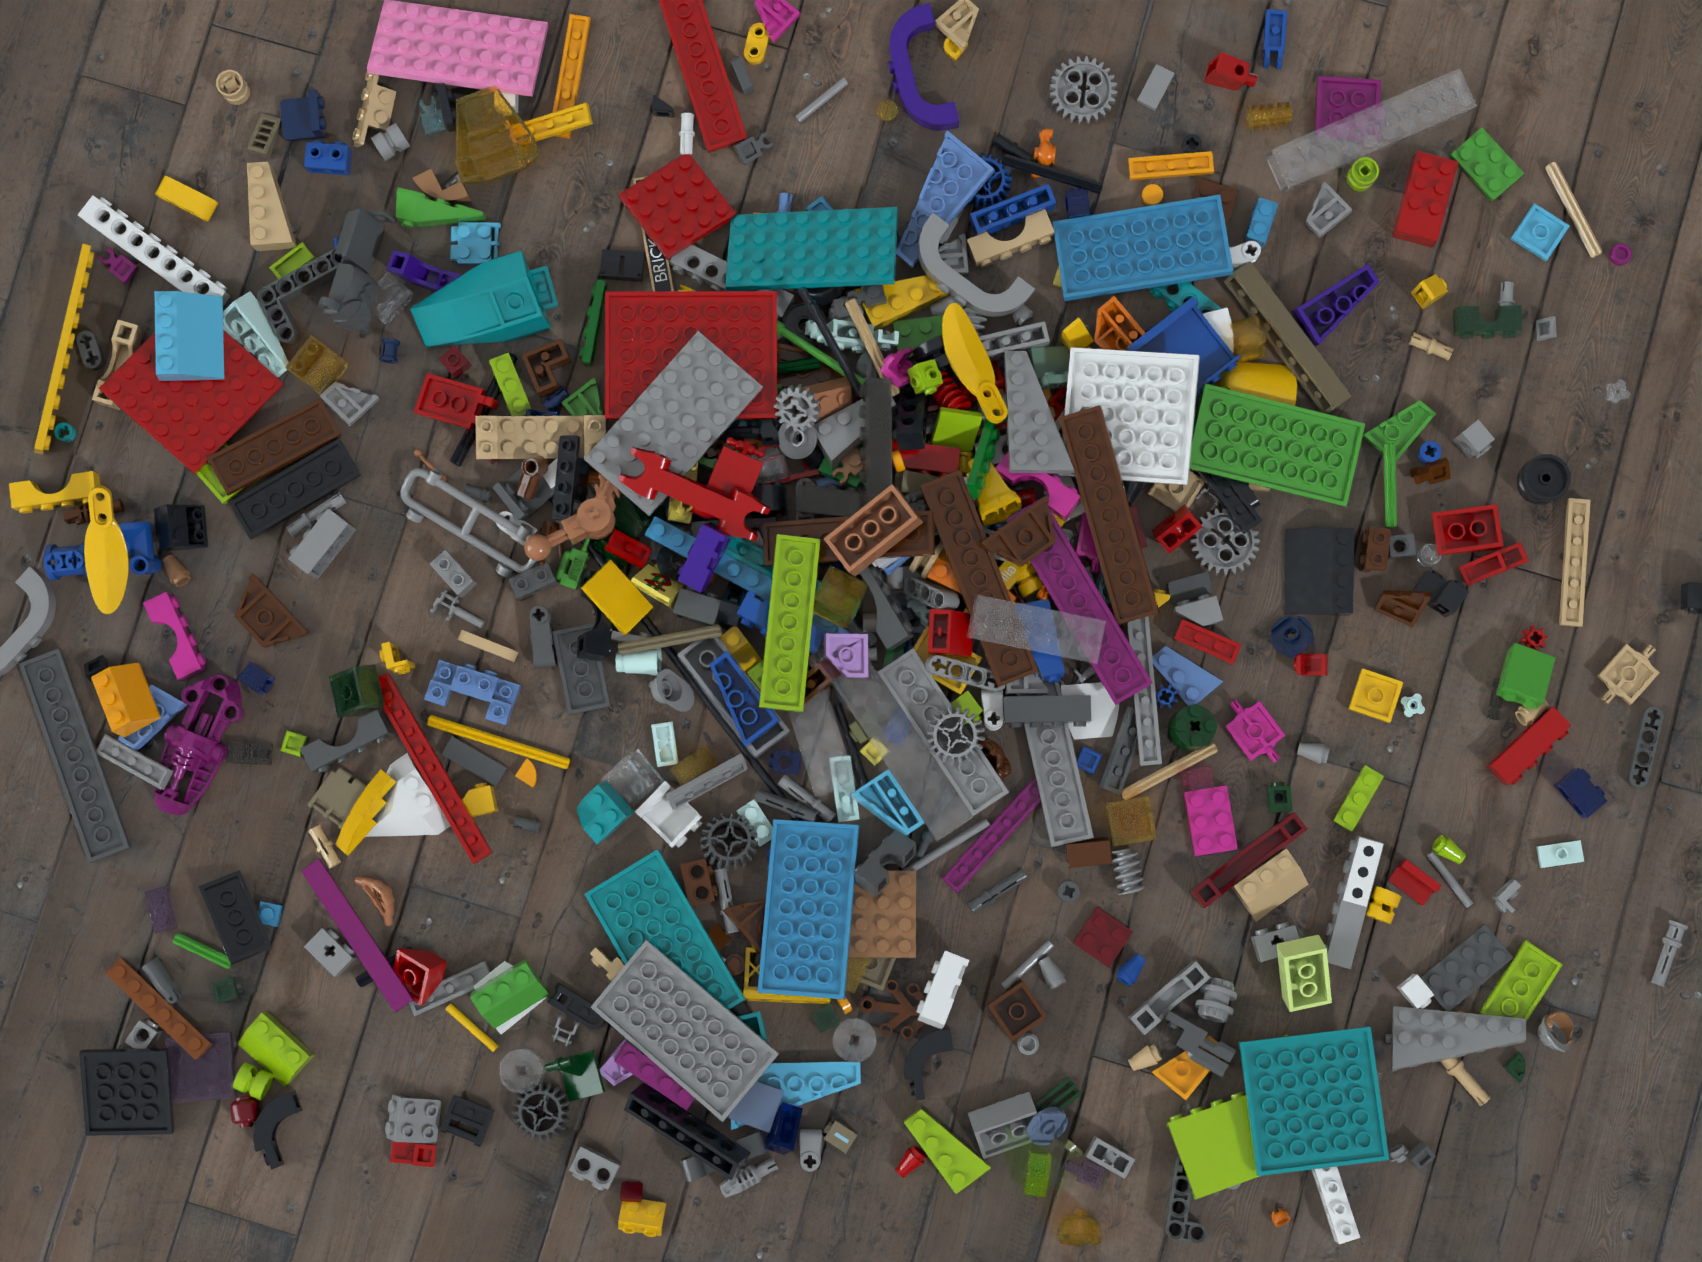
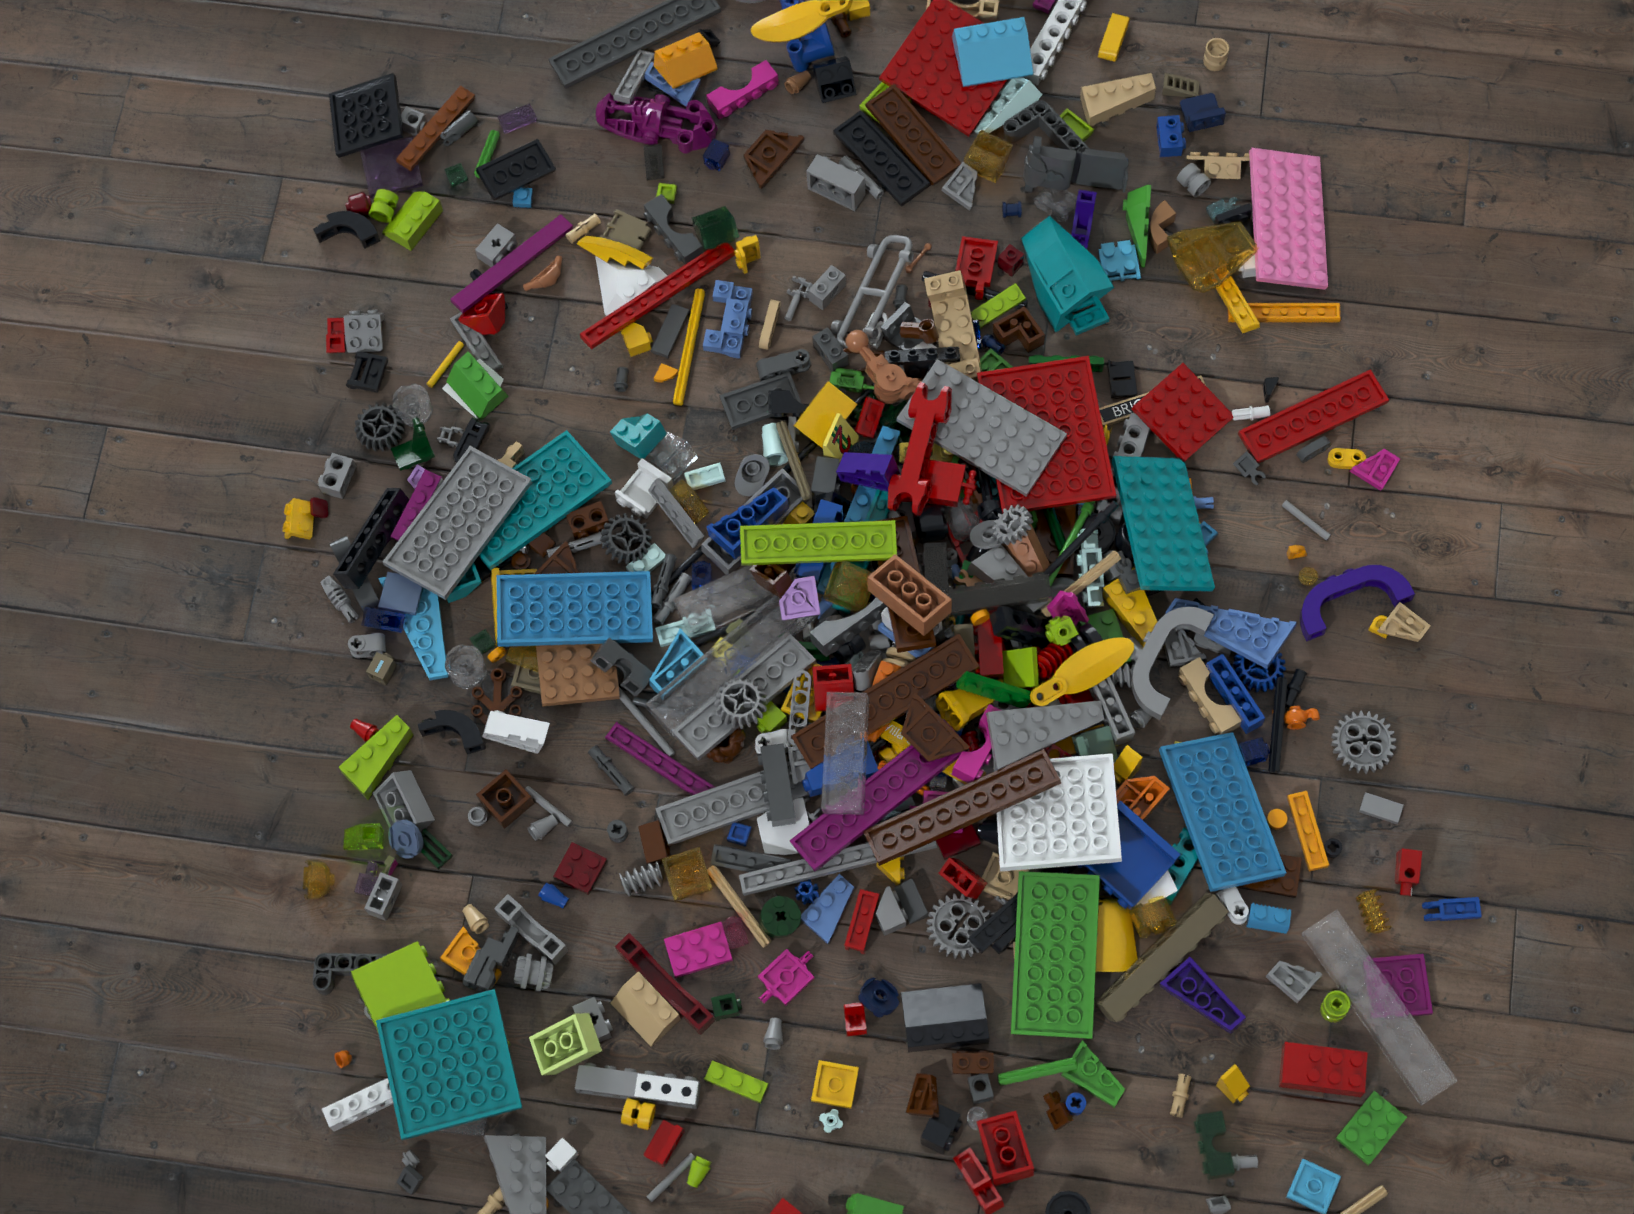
camera: 80 degrees right, 15 degrees down
(858, 118) = (1296, 551): none -> light orange tile
(1474, 440) = (1093, 1142): light grey brick -> none

